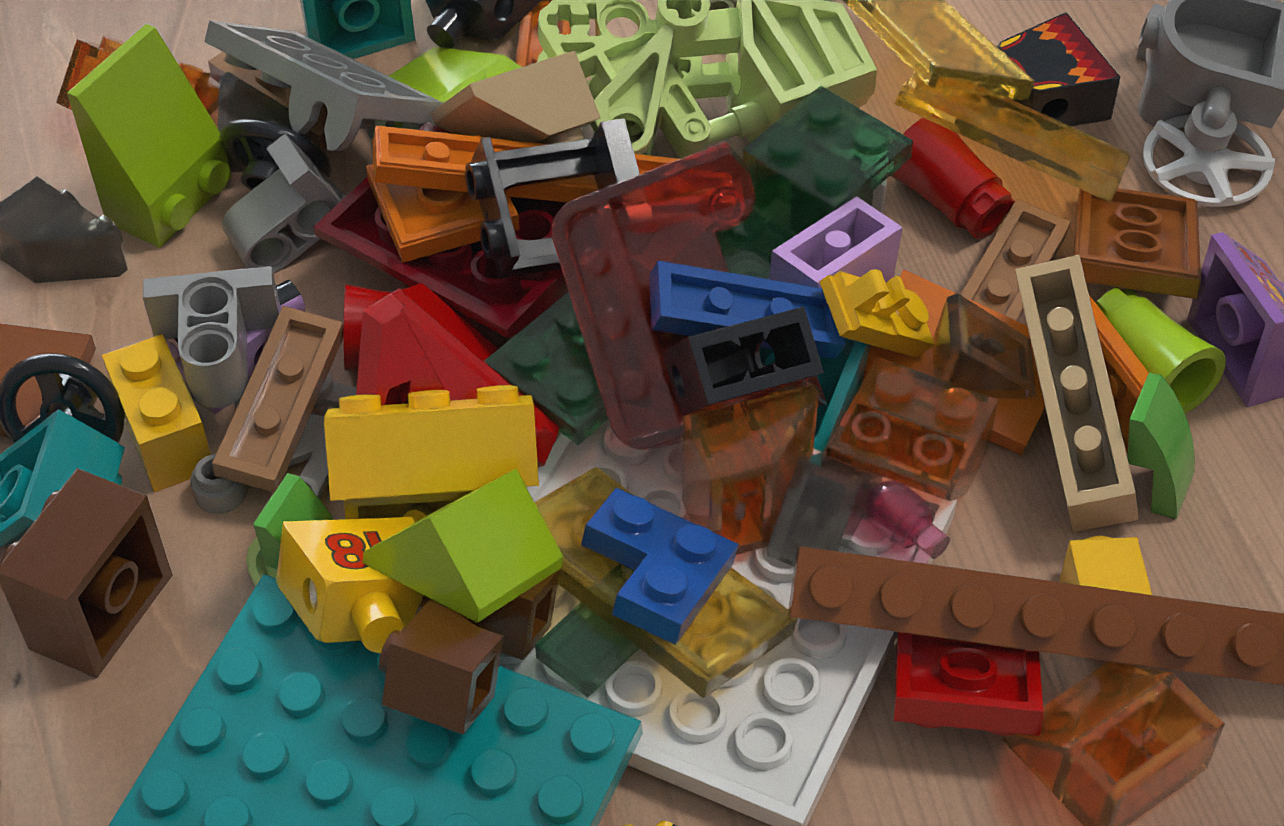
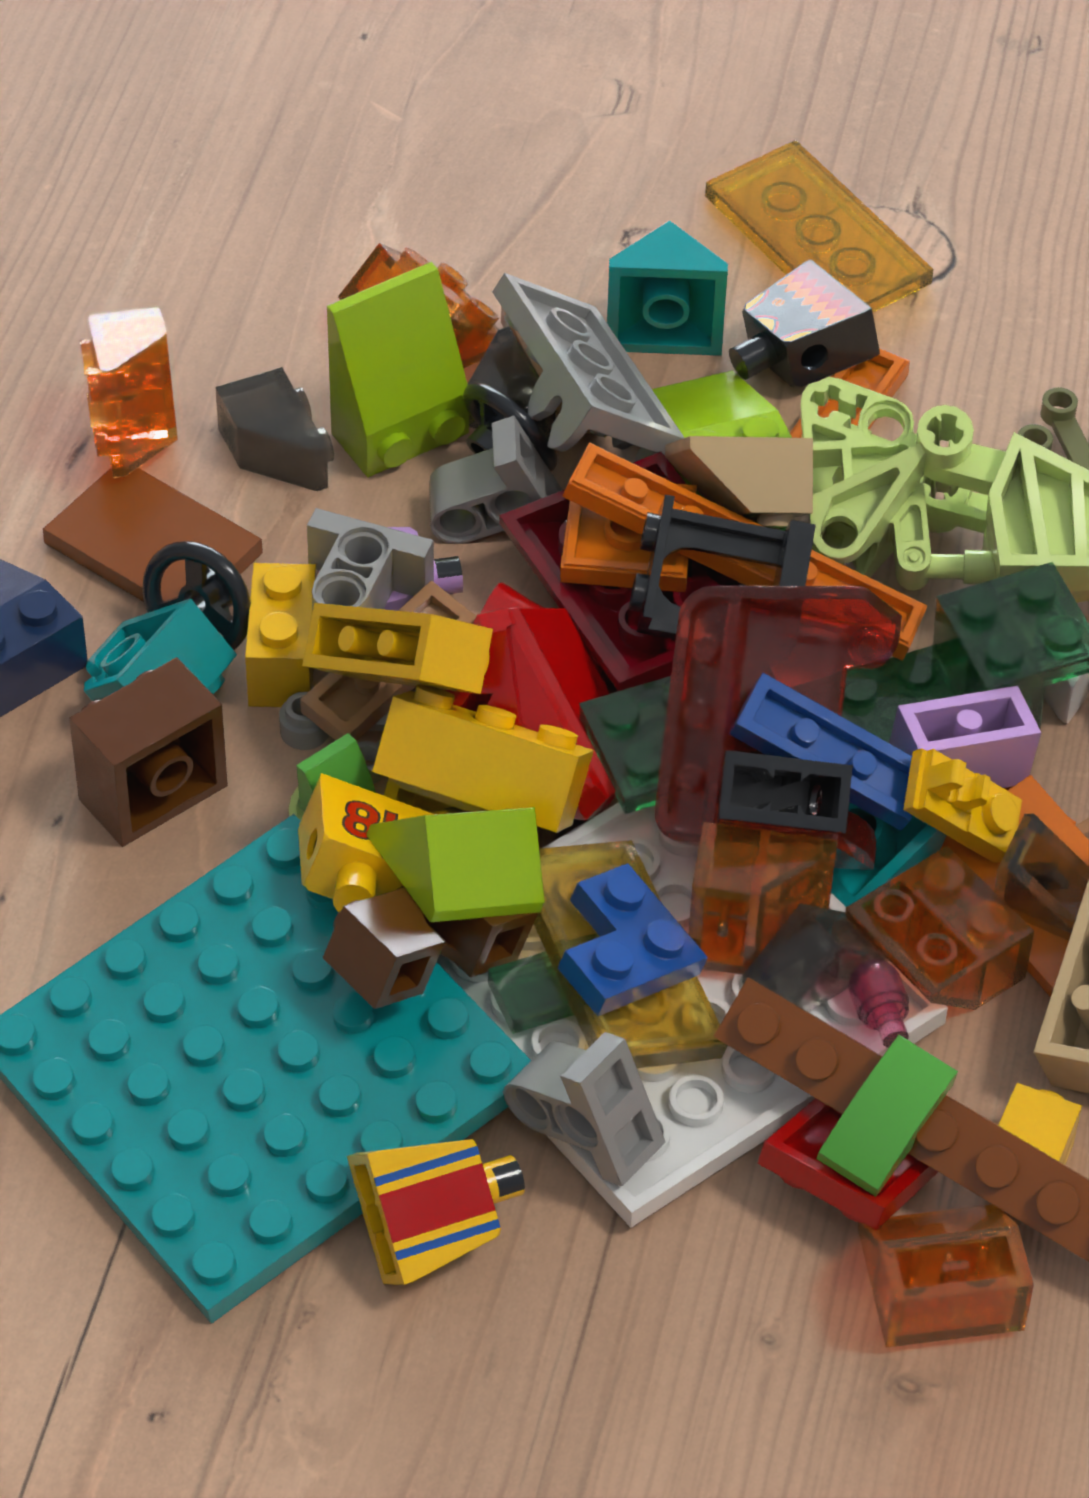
camera: 25 degrees right, 0 degrees up
(300, 371) = (398, 647): none -> yellow brick
(711, 733) = (590, 1102): none -> light grey tile
(1000, 622) = (887, 1115): none -> bright green slope

